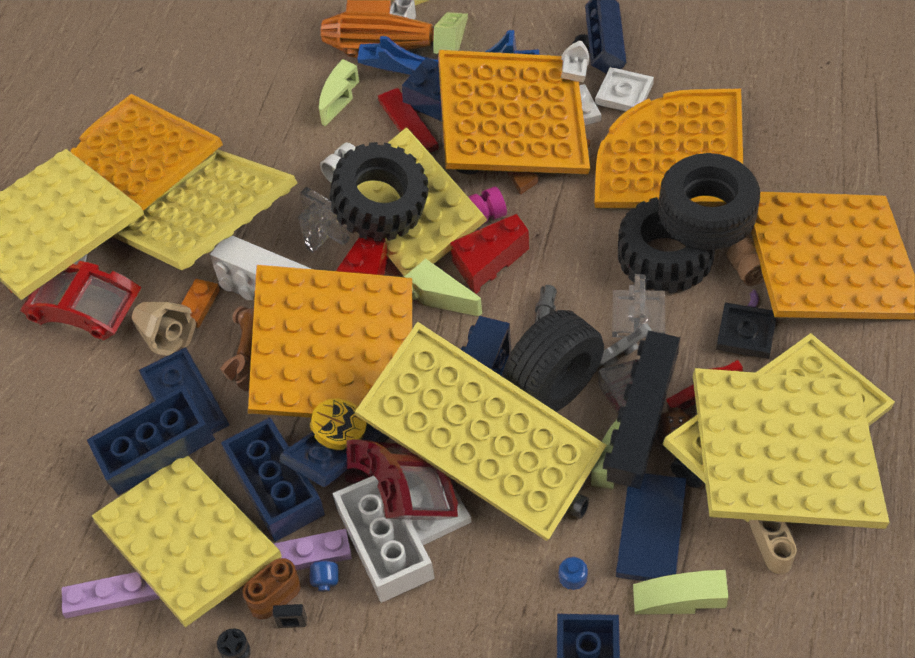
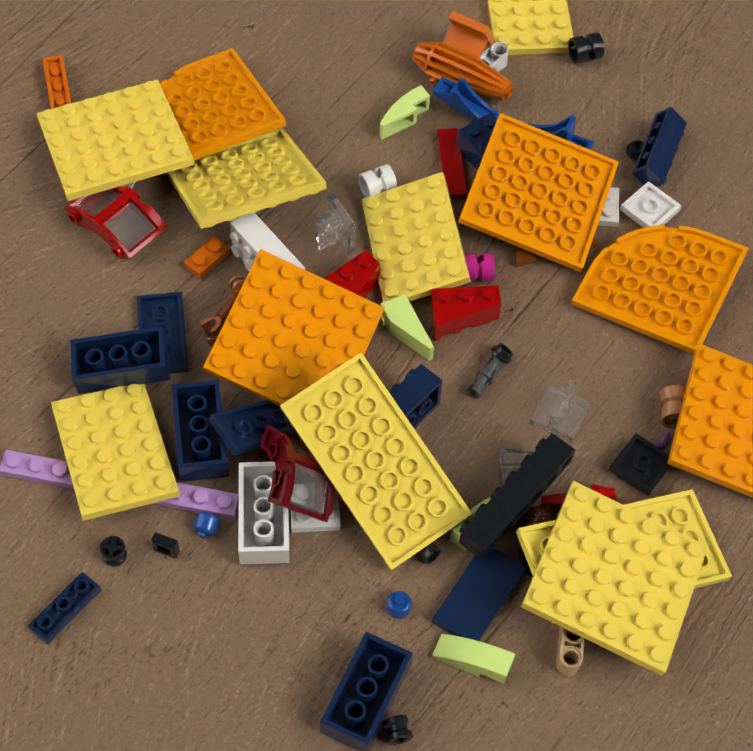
camera: 15 degrees right, 5 degrees up
(164, 325) = (171, 268): tan cone -> none
(271, 586) = (161, 517): dark orange brick -> none
(336, 422) = (263, 407): yellow tile -> none
(384, 165) = (404, 201): black tyre -> none
(449, 32) = (525, 94): yellowish green slope -> none
(551, 278) = (502, 352): none -> black plate
(555, 358) = (463, 426): black tyre -> none
(575, 62) = (616, 165): white tile -> none
(626, 345) = (515, 440): light grey wing -> none
(661, 269) = (618, 339): black tyre -> none
(709, 226) = (663, 317): black tyre -> none

